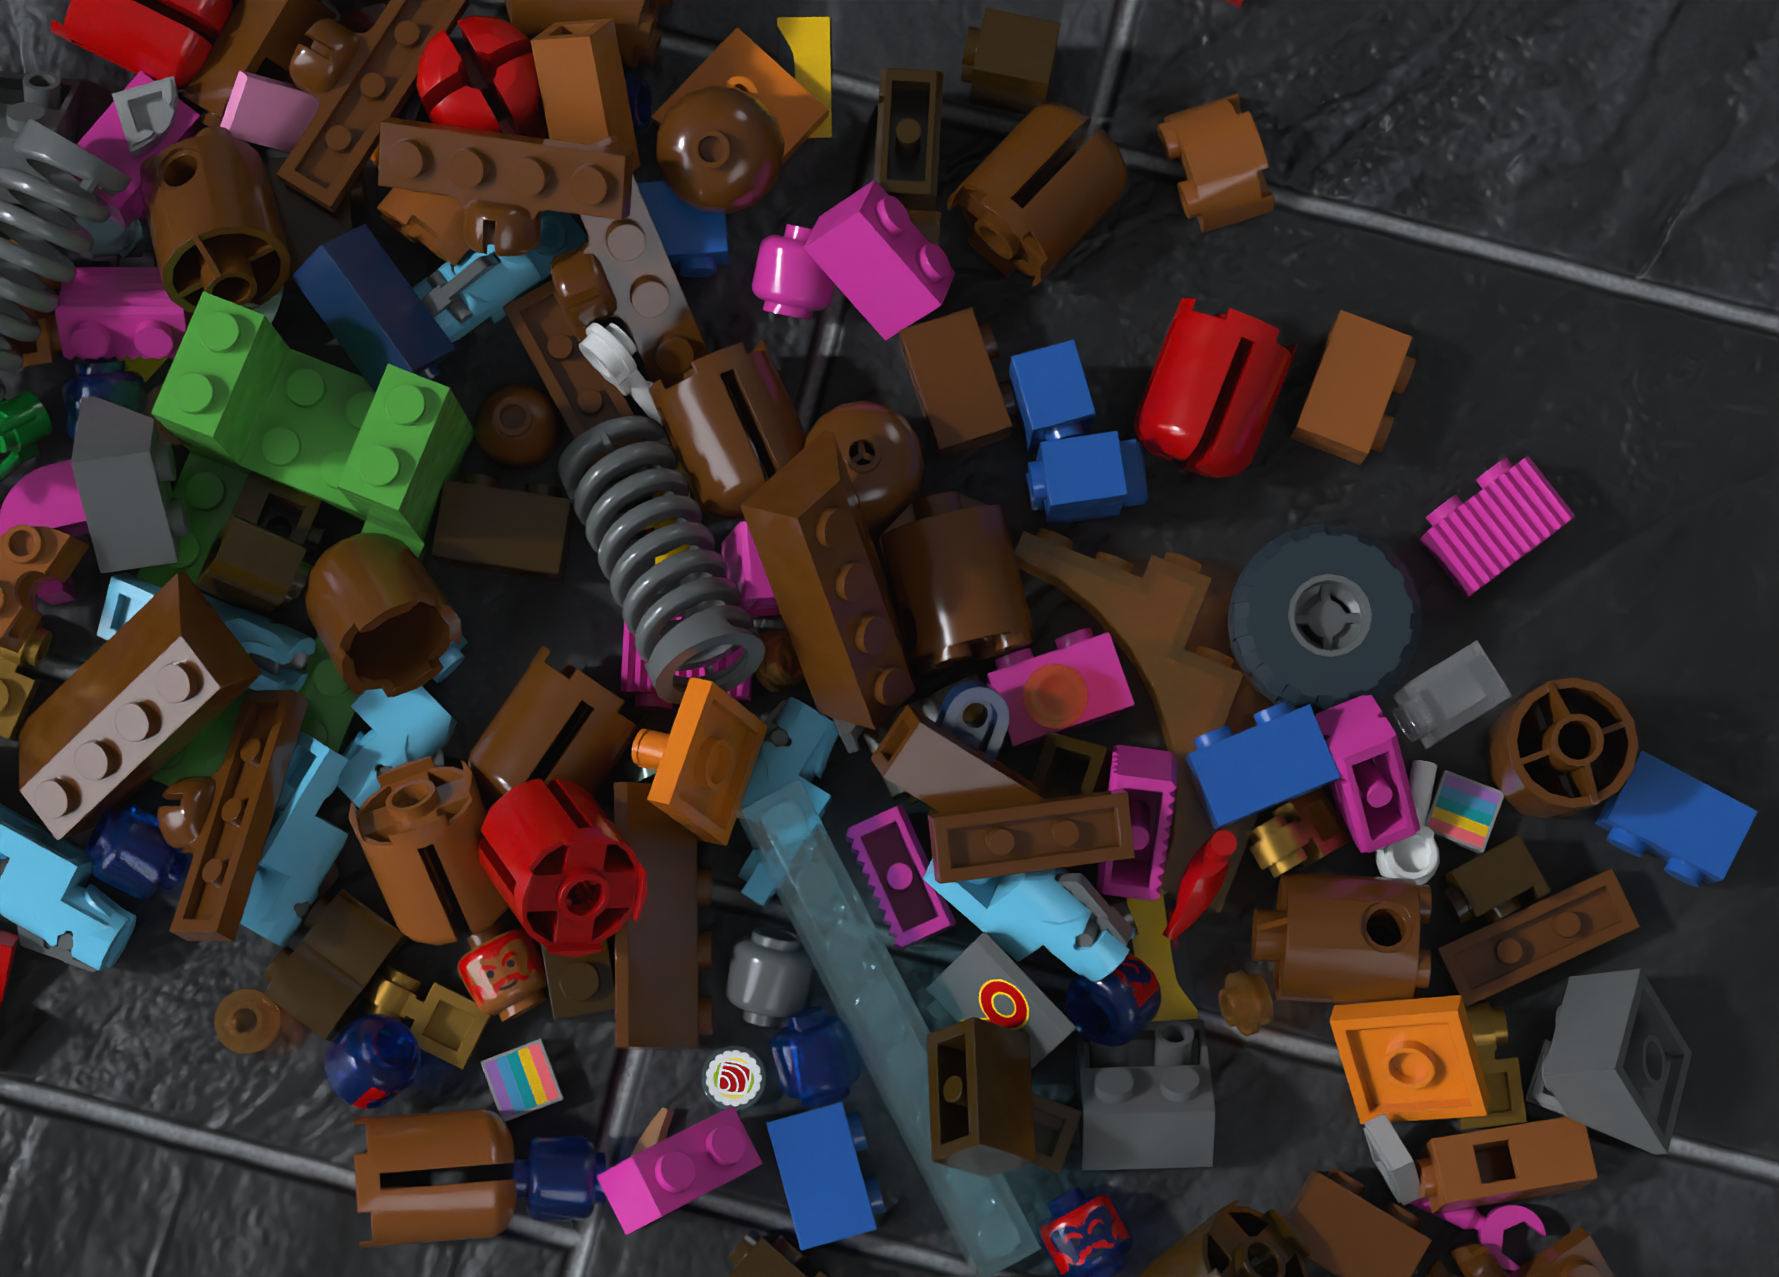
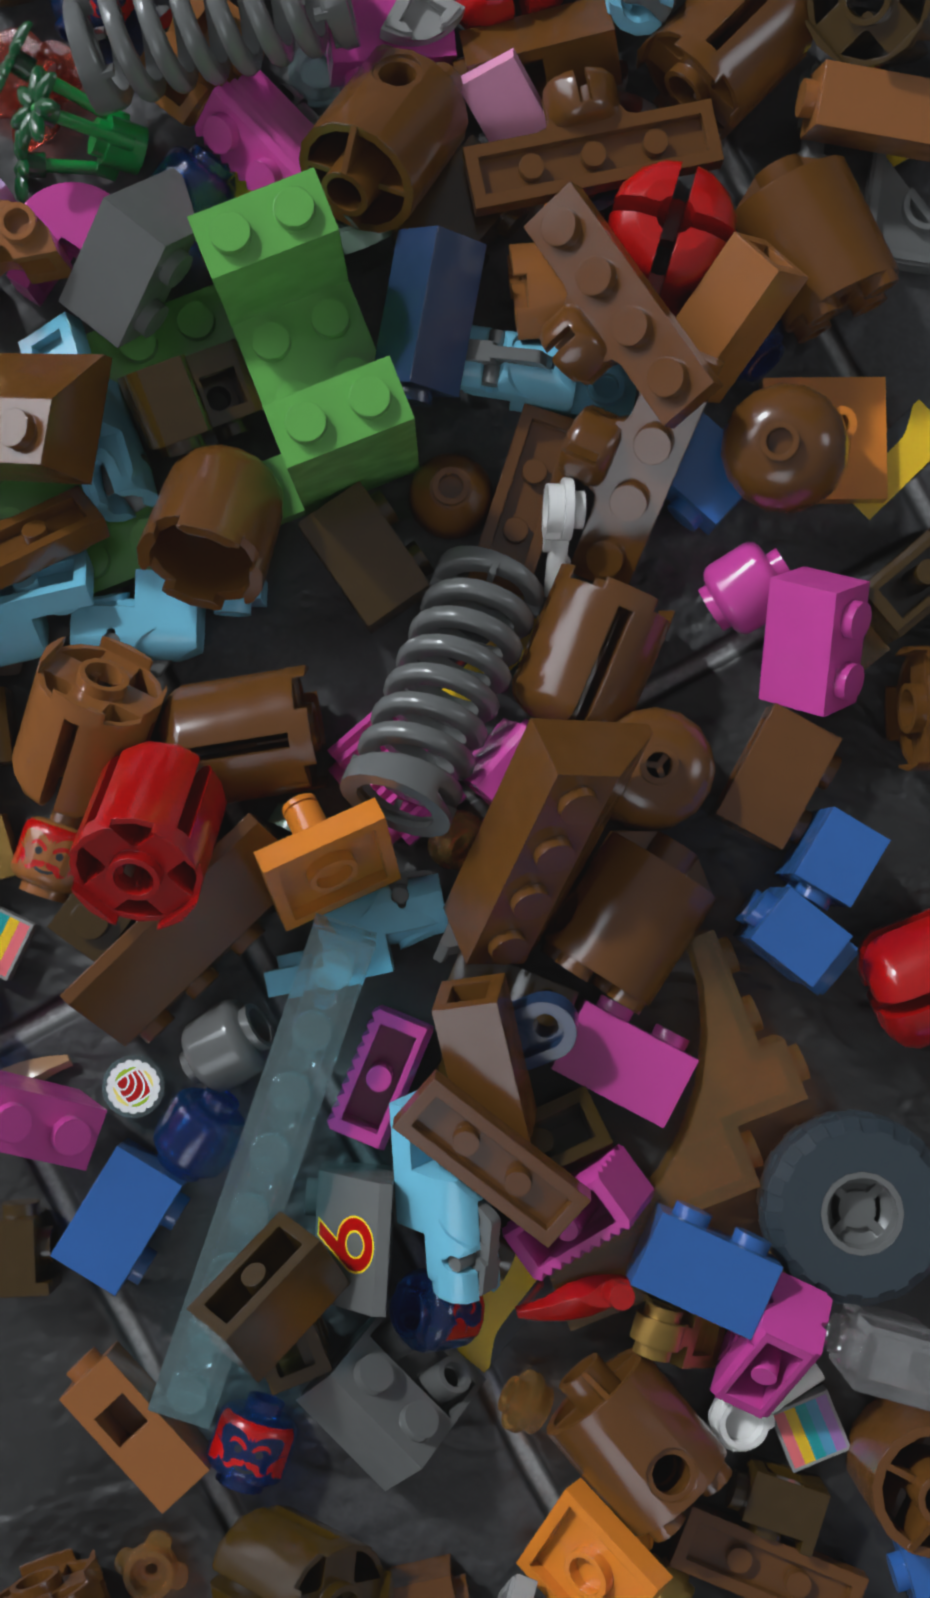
camera: 45 degrees right, 5 degrees up
(1055, 696) = (615, 1068): clear orange plate -> none

